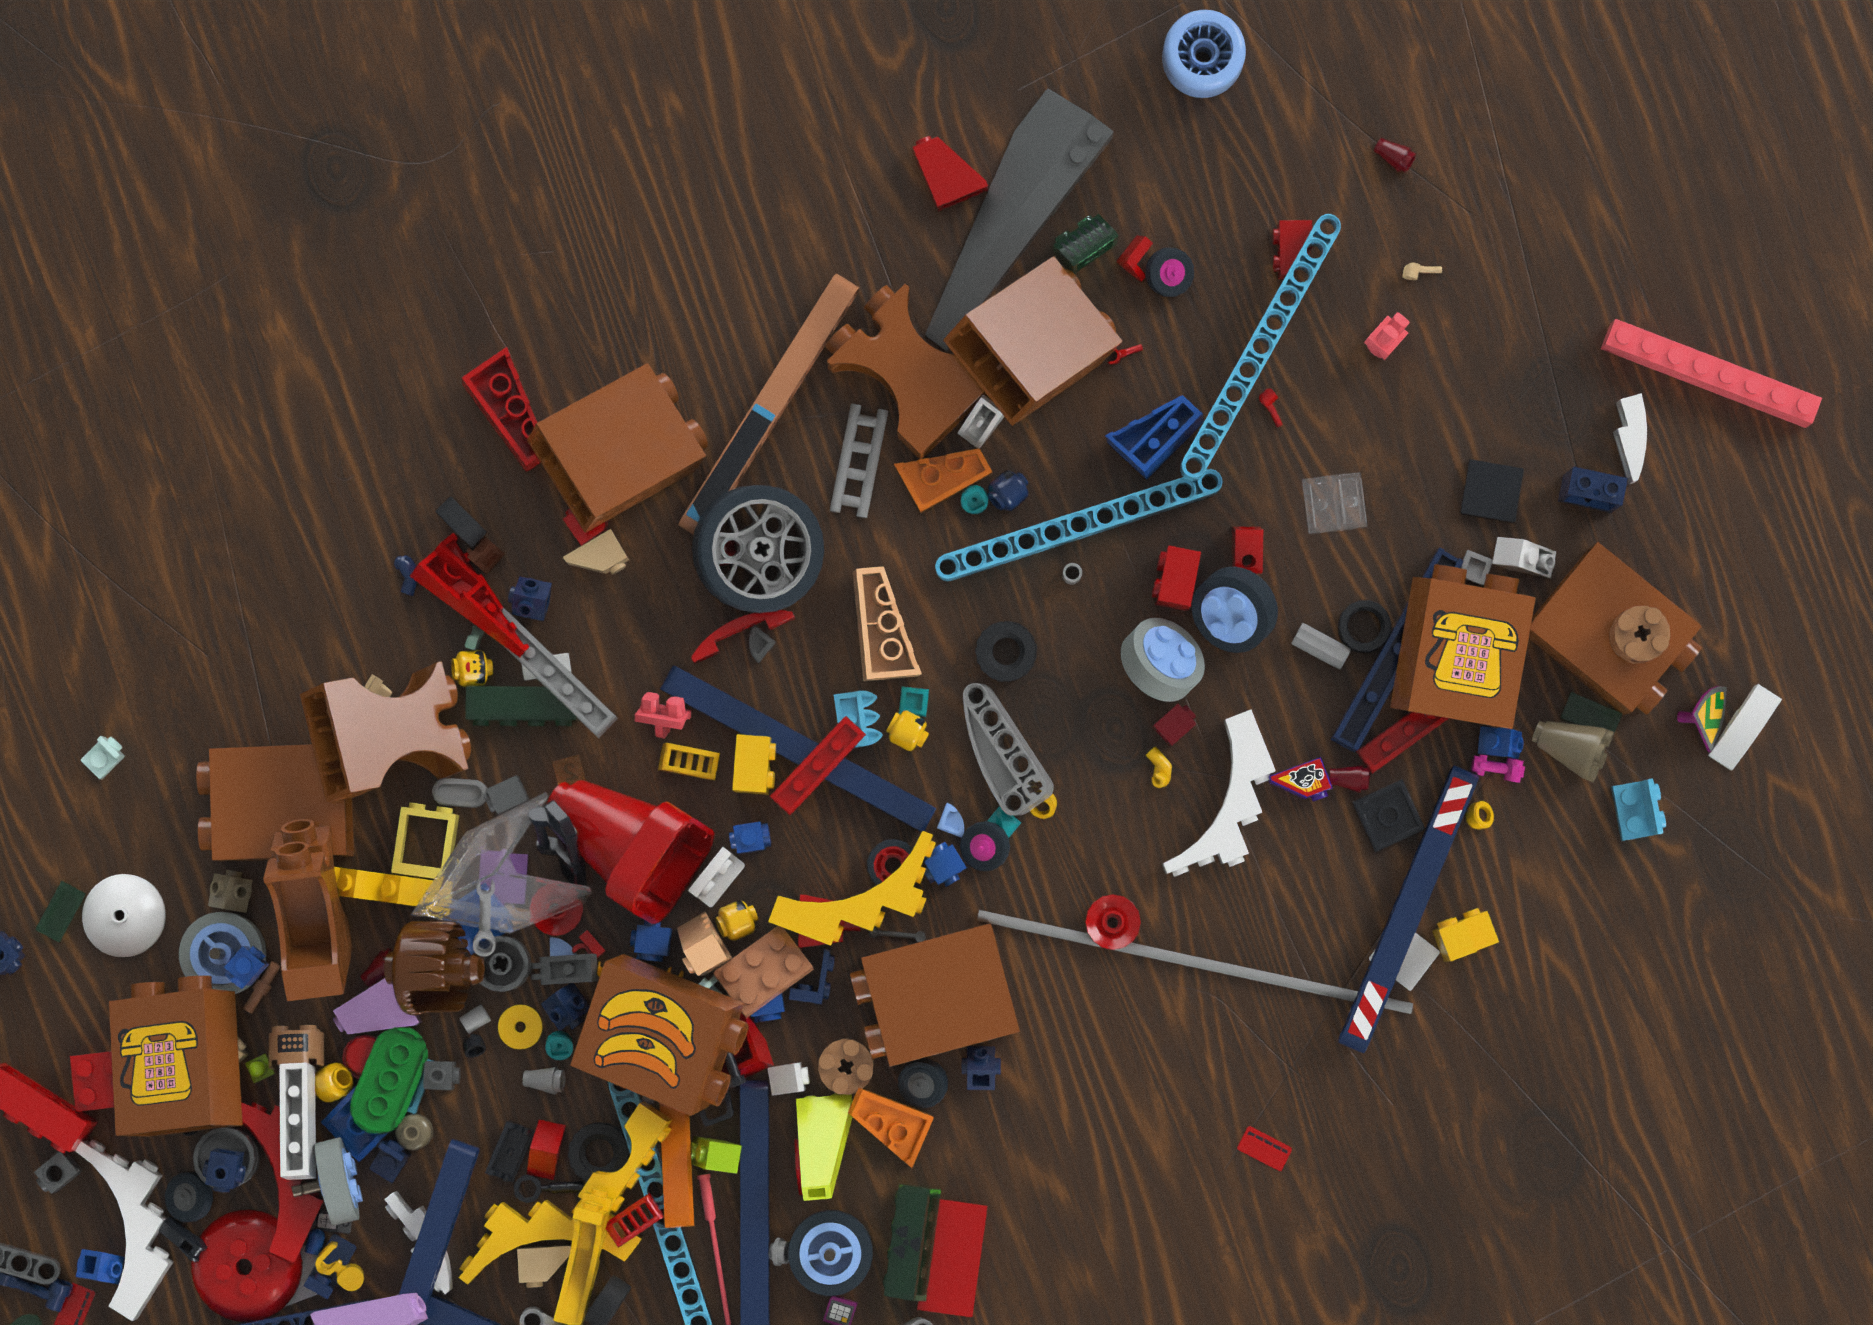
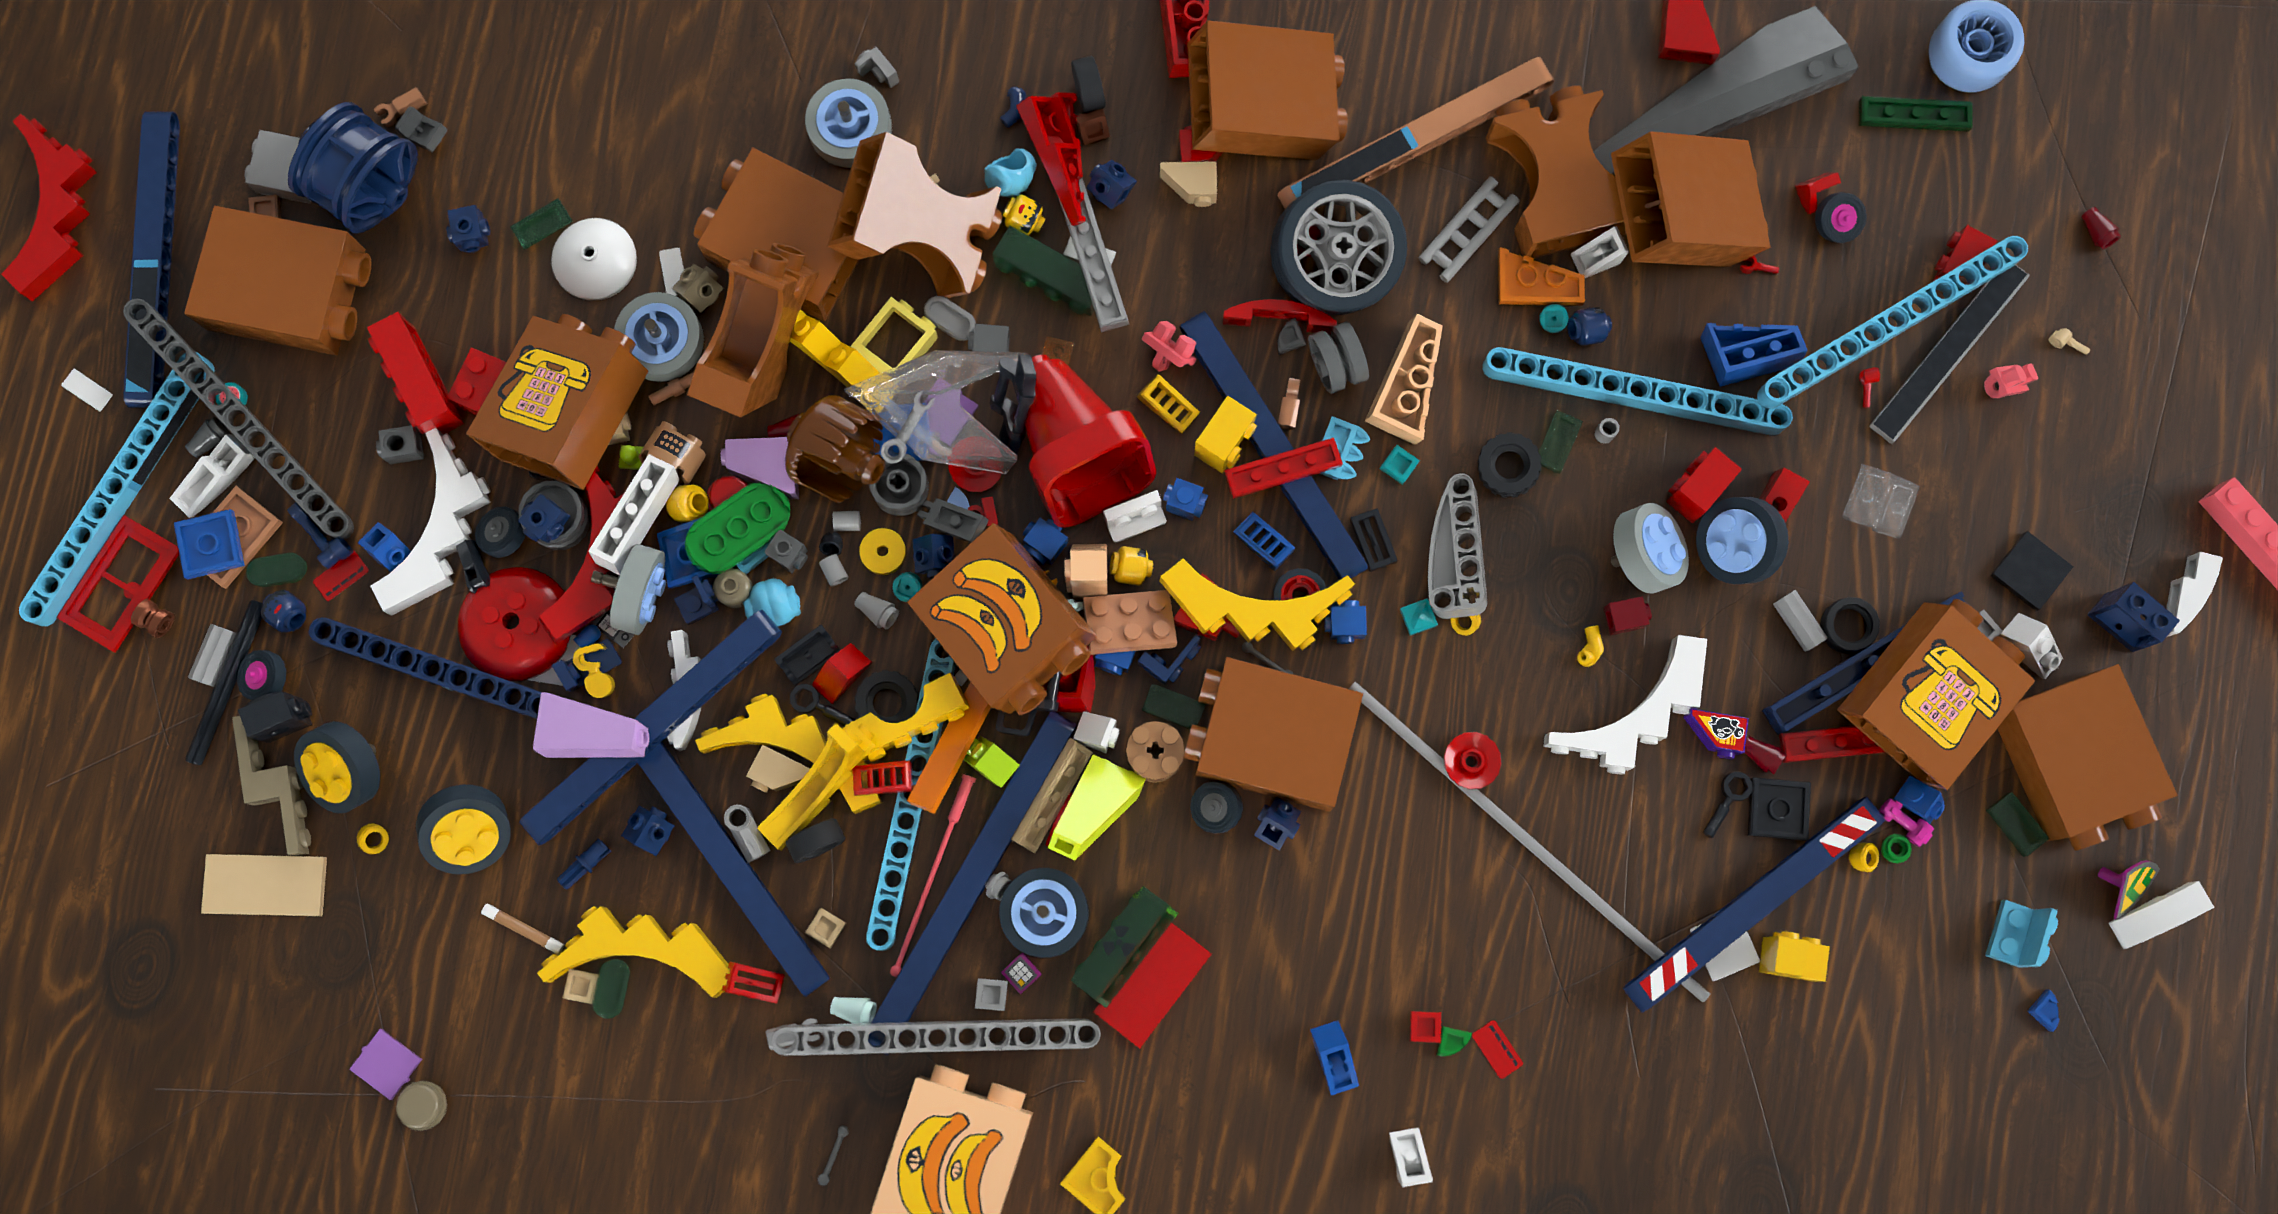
camera: 25 degrees right, 5 degrees down
(103, 756) = (659, 114): light aqua bracket -> none
(195, 885) = (671, 268): none -> white sticker
(246, 966) = (671, 354): blue brick -> none
(273, 672) = (844, 115): none -> wheel
(274, 608) = (881, 68): none -> light grey bracket
(439, 638) = (1011, 173): none -> medium azure hair
(454, 1122) = (775, 599): none -> medium azure hair
(473, 641) = (1040, 193): sand green tile -> none
(488, 1067) = (833, 570): none -> light grey hinge
(781, 1151) = (1052, 795): none -> tan tile
(793, 705) = (1289, 406): none -> nougat bar
(810, 643) = (1338, 357): none -> dark grey wheel
(839, 1018) = (1173, 707): none -> clear green tile
(858, 840) = (1287, 547): none -> blue slope
(892, 1123) = (1167, 826): orange wing -> none
(907, 730) = (1380, 485): yellow head -> none
(909, 764) = (1363, 544): none -> black tile
(951, 821) = (1374, 589): light blue tile -> none
(985, 846) = (1393, 626): black wheel -> none
(1036, 605) = (1559, 441): none -> clear green tile
(1085, 243) = (1781, 151): clear green slope -> none
(1135, 1233) = (1334, 1057): none -> blue arch
(1185, 138) = (1915, 113): none -> dark green tile
(1194, 1165) = (1425, 1027): none -> red tile
(1223, 1163) = (1452, 1041): none -> green tile
(1240, 1278) = (1410, 1157): none -> white slope
(1323, 339) = (1947, 353): none -> black tile
(1342, 842) = (1723, 808): none -> black piece
(1510, 794) = (1904, 846): none -> green plate
(1575, 746) = (1991, 841): dark tan cone -> none
(1647, 620) = (2131, 776): medium nougat brick -> none
(1693, 859) = (2046, 1010): none -> blue tile

